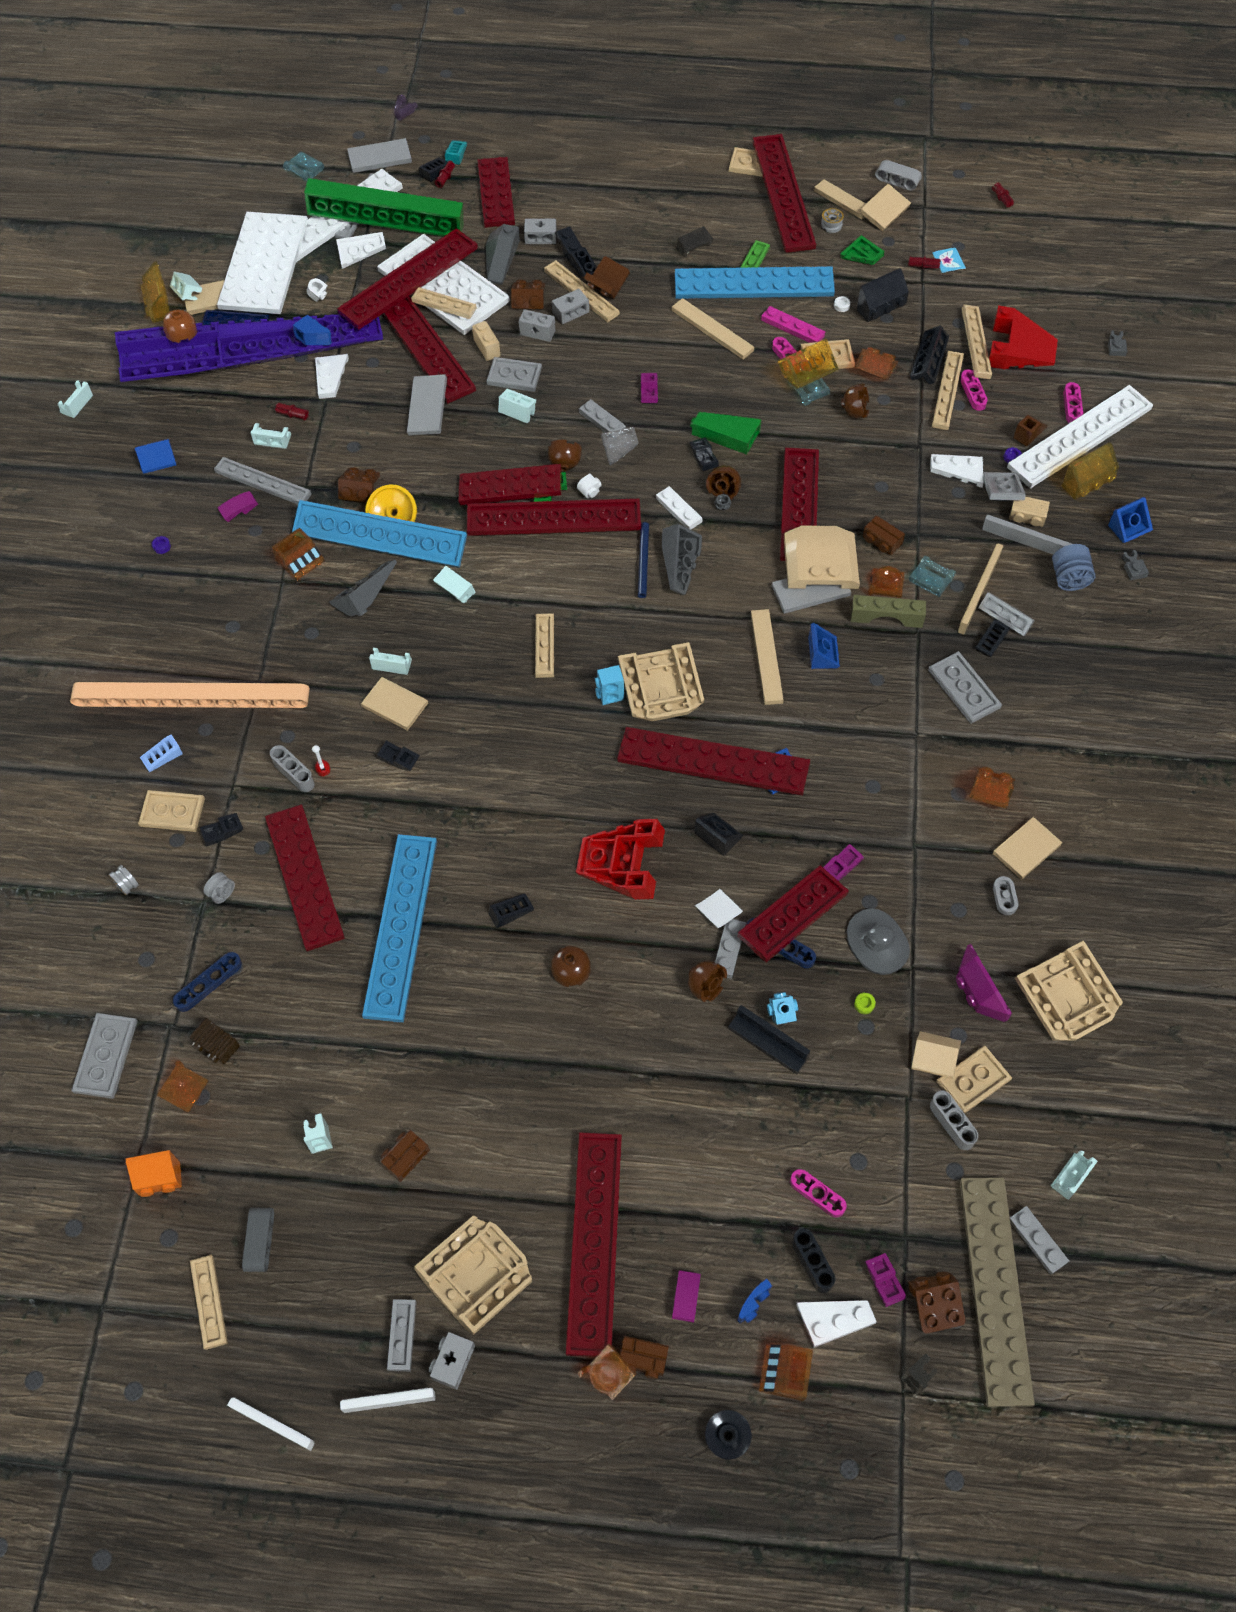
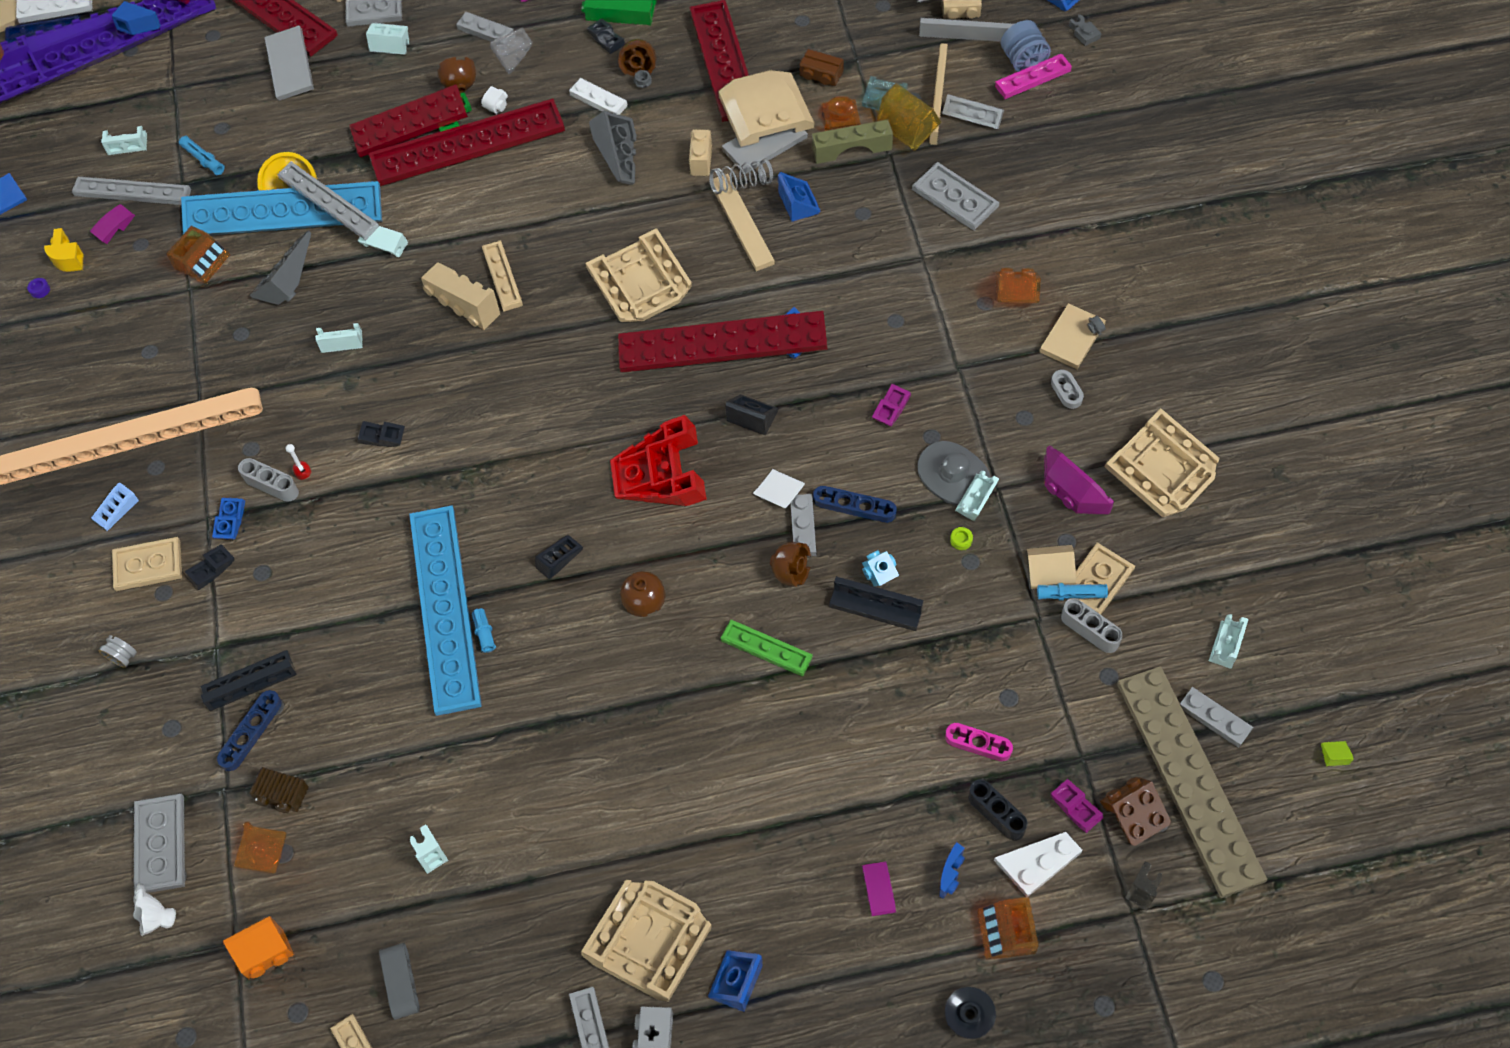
camera: 15 degrees left, 0 degrees up
(79, 1112) = (151, 912): none -> white hair
(190, 521) = (63, 254): none -> yellow brick
(219, 887) = (229, 627): light grey wheel -> none
(220, 941) = (248, 684): none -> black fence
(250, 792) = (229, 519): none -> blue slope
(292, 411) = (139, 108): dark red axle -> none
(304, 878) = (321, 590): dark red plate -> none
(321, 454) = (206, 159): none -> dark azure pin
(329, 372) = (169, 59): white wing -> none
(357, 484) = (239, 165): reddish brown bracket -> none
(394, 703) = (358, 381): tan tile -> none
(404, 1155) = (530, 842): reddish brown brick -> none
(419, 538) = (328, 200): none -> light grey tile
(426, 956) = (483, 630): none -> dark azure axle
(504, 654) = (461, 295): none -> tan wedge
(537, 1335) = (736, 979): none -> blue slope
(594, 1244) = (765, 869): dark red plate -> none
(608, 1372) = (825, 991): clear orange hat -> none
(610, 685) = (587, 295): medium azure brick -> none
(643, 560) = (578, 160): dark blue piece -> none
(645, 1356) = (855, 964): reddish brown brick -> none
(661, 1048) = (766, 648): none -> bright green tile
(750, 583) = (700, 152): none -> tan brick
(758, 619) = (761, 176): none -> light grey piece
(792, 913) = (857, 470): dark red plate -> none
(890, 969) = (976, 495): none -> light aqua hinge
(944, 603) = (908, 116): none -> clear yellow slope
(949, 1084) = (1072, 591): none -> dark azure pin
(999, 626) = (972, 127): black slope -> none
(1051, 845) = (1096, 325): none -> dark grey plate
(1072, 596) = (1033, 76): none -> dark pink plate
(1138, 1310) = (1336, 753): none -> lime slope

